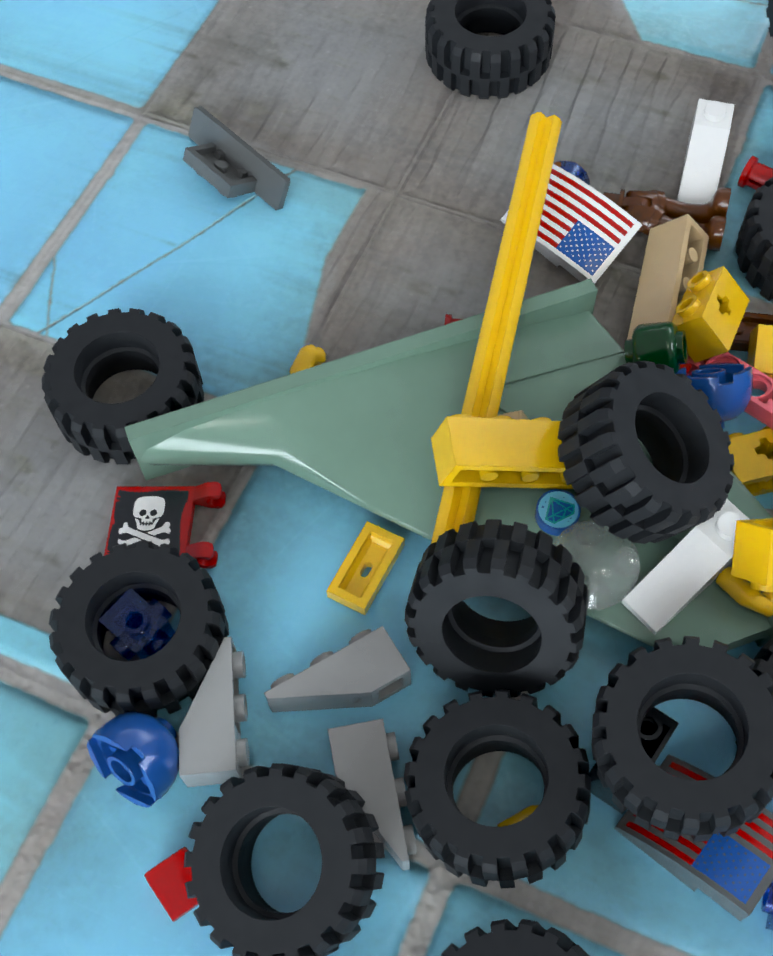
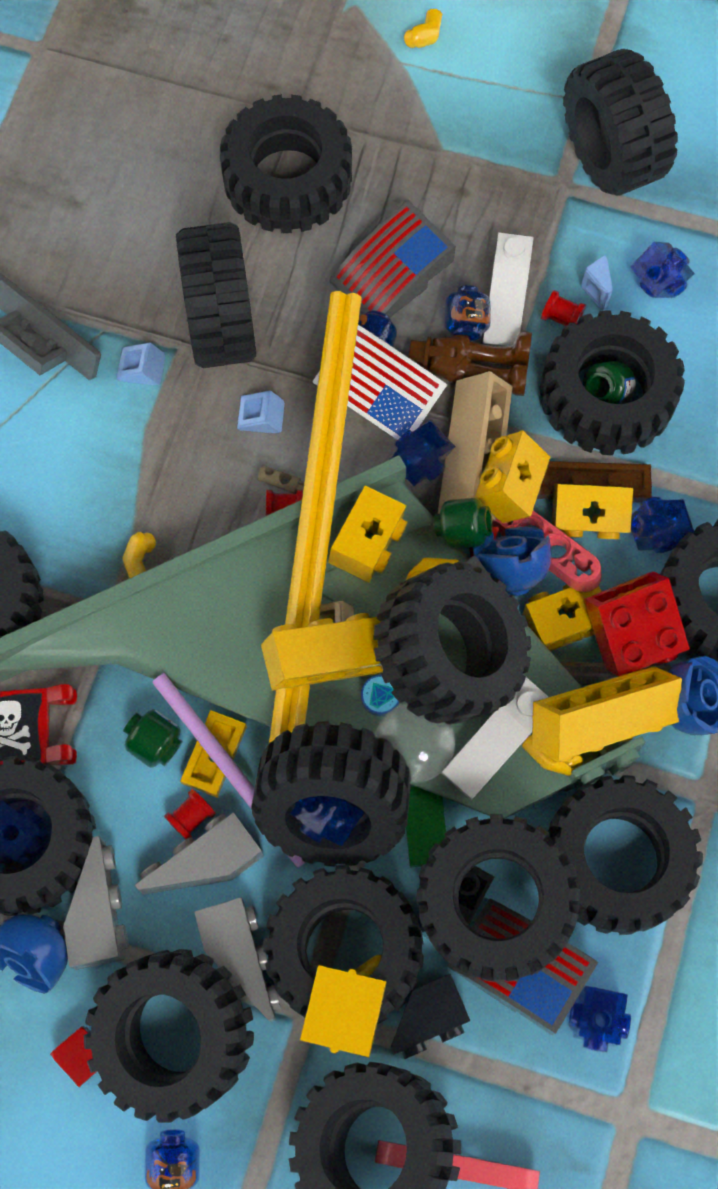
camera: 10 degrees left, 10 degrees up
(301, 544) = (152, 738): none -> dark green head
(329, 198) = (141, 364): none -> light blue slope
(333, 627) = (190, 814): none -> red bush
(370, 564) = (209, 743): none -> lavender bar
(413, 125) = (216, 295): none -> black tyre
(445, 249) = (261, 412): none -> light blue slope
(455, 307) = (274, 478): none -> dark tan pin
(490, 627) = (327, 818): none -> clear blue brick
(495, 853) = (343, 1011): none -> yellow piece
(552, 350) = (370, 514): none -> yellow brick
(594, 664) = (424, 825): none -> green tile
(595, 877) = (430, 1012): none -> black slope
(599, 120) = (395, 261): none -> slope
(617, 287) = (423, 452): none -> clear blue brick
(663, 170) = (468, 312): none -> clear blue head

